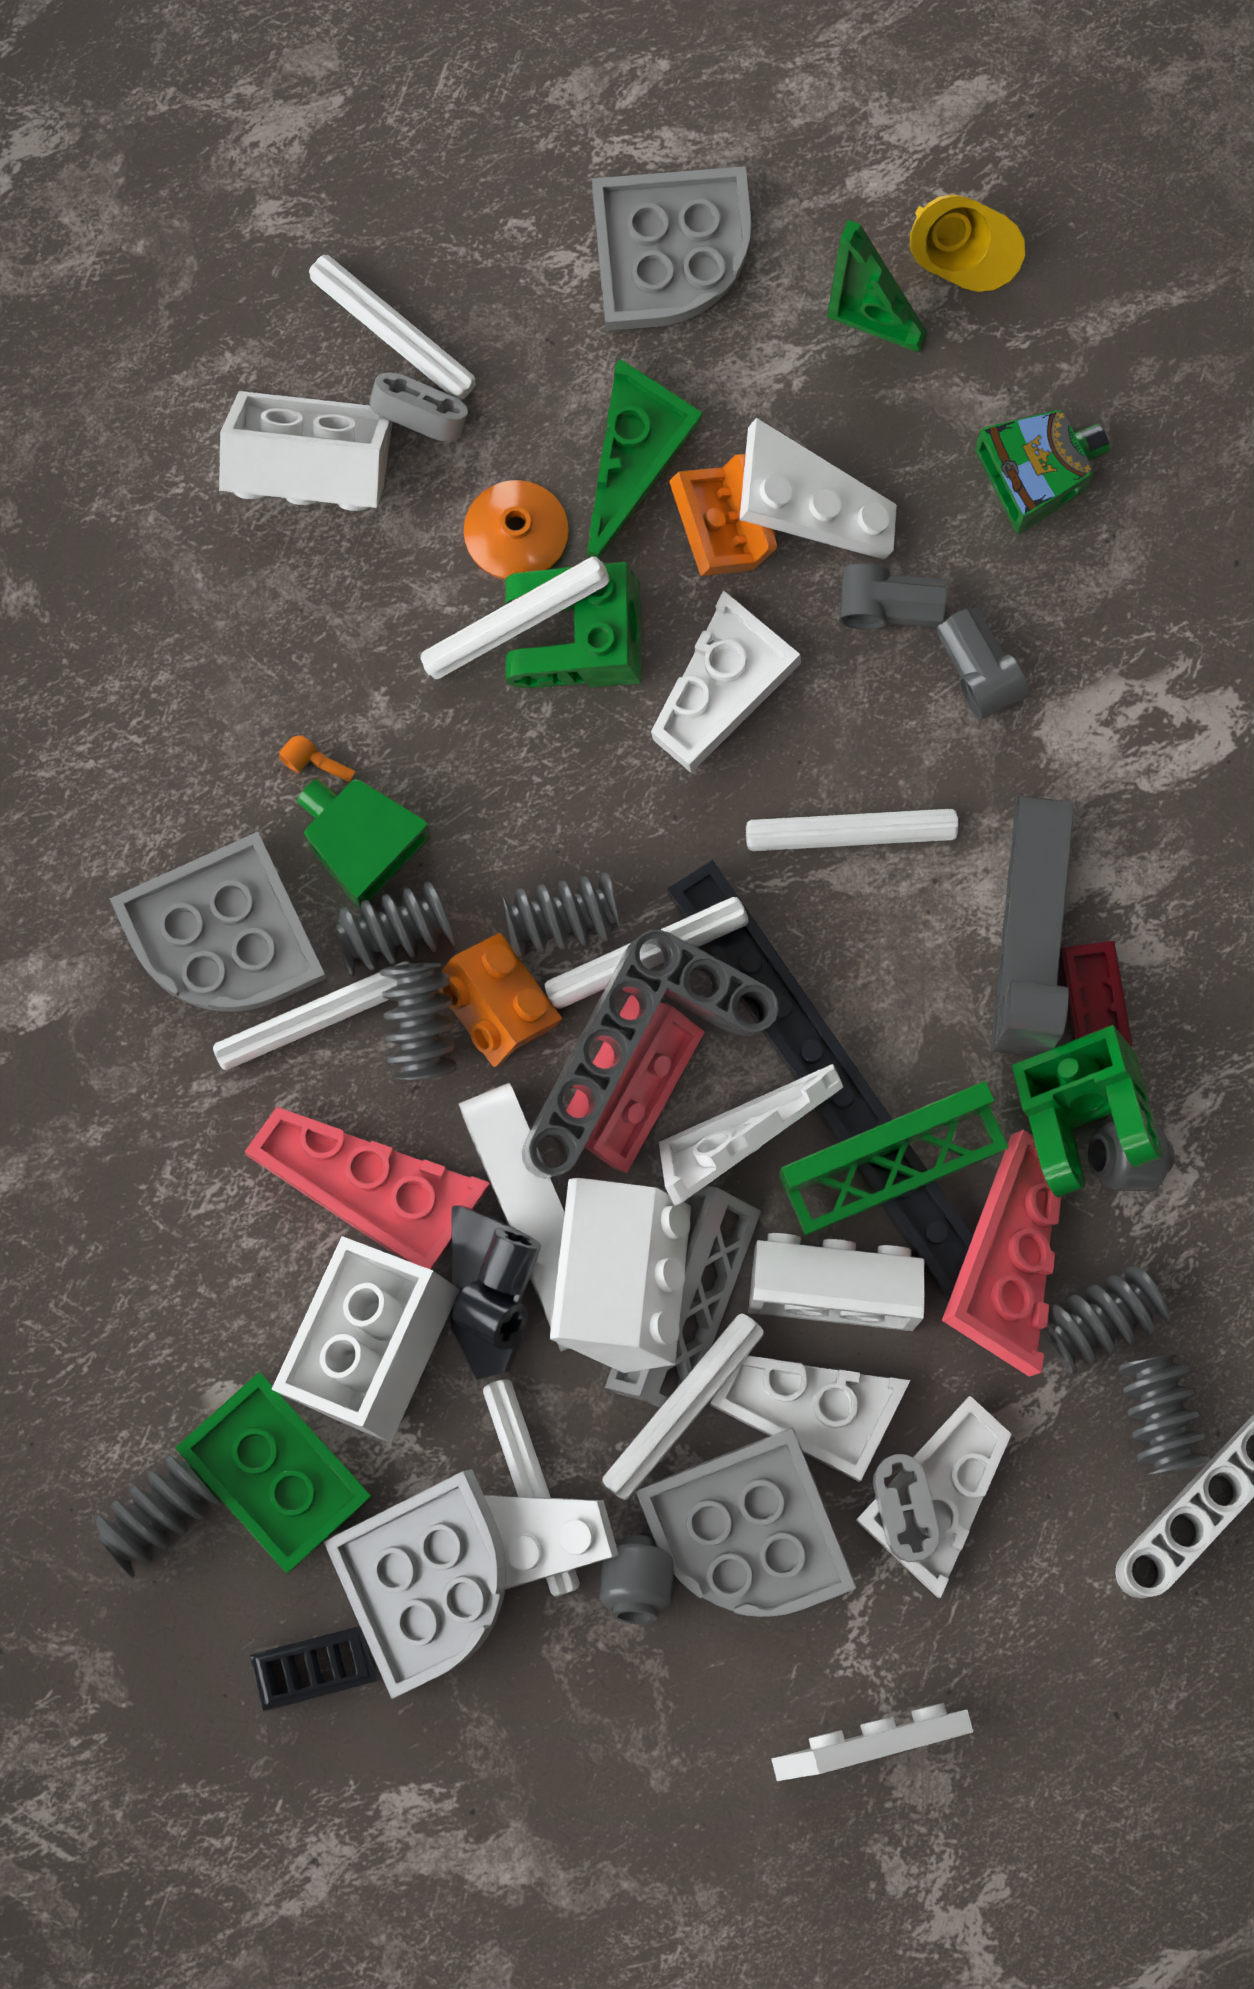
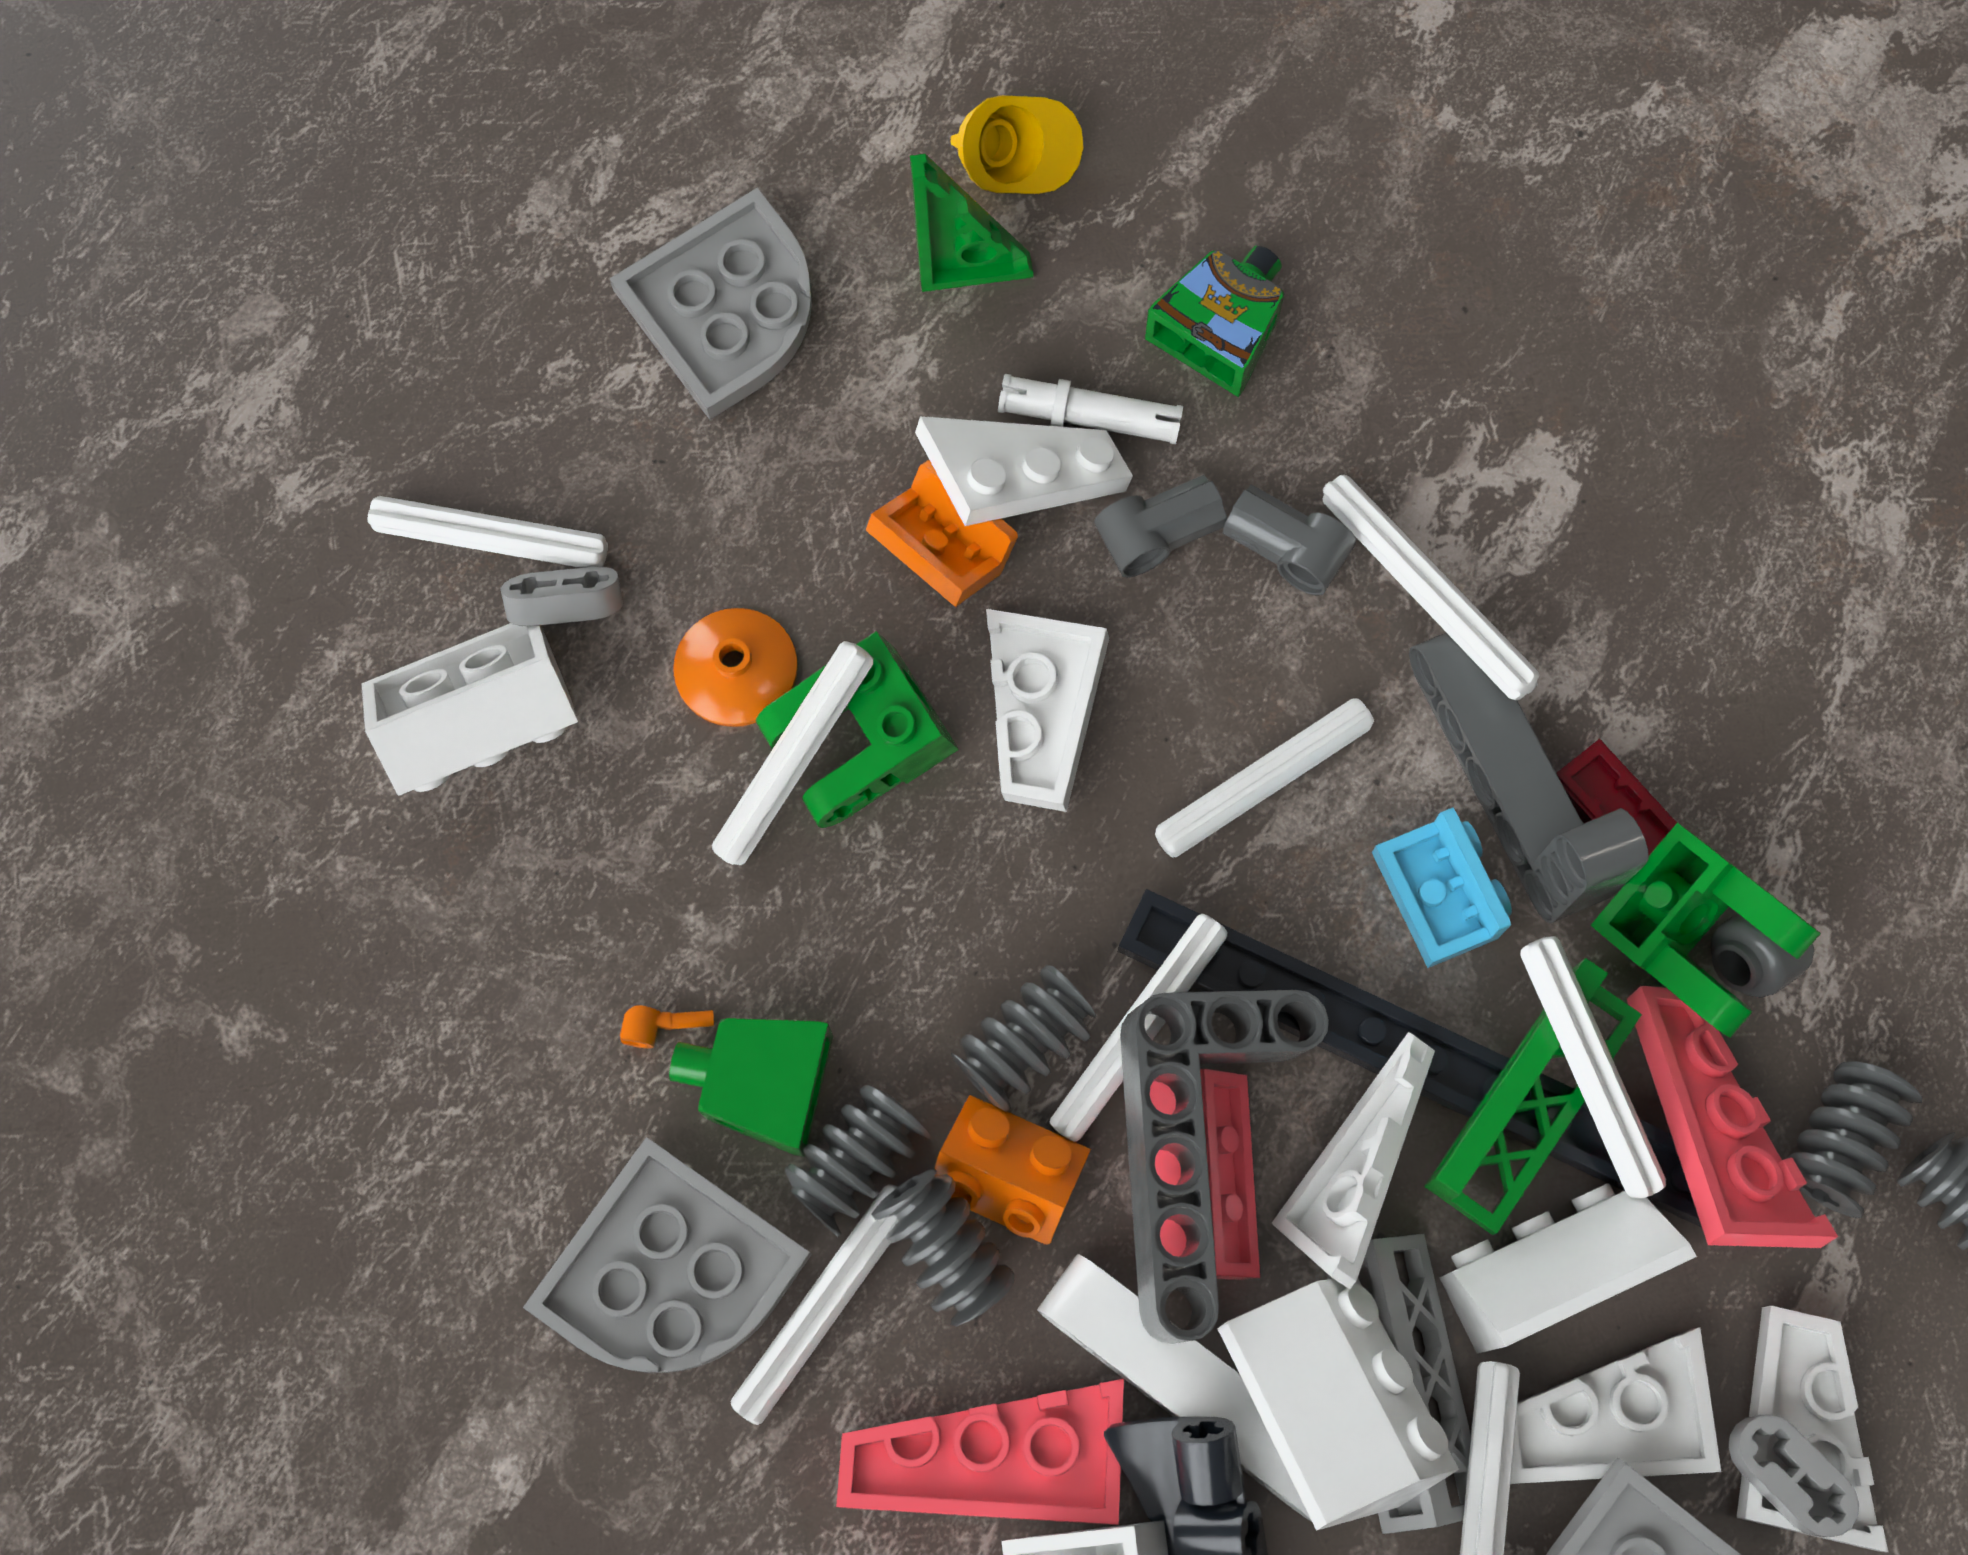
camera: 25 degrees left, 5 degrees down
(641, 440) = (812, 507): green wing -> none
(894, 481) = (1089, 408): none -> white pin
(926, 982) = (1444, 888): none -> medium azure bracket
(939, 1156) = (1593, 1067): none -> white axle
(1057, 757) = (1431, 588): none -> white axle

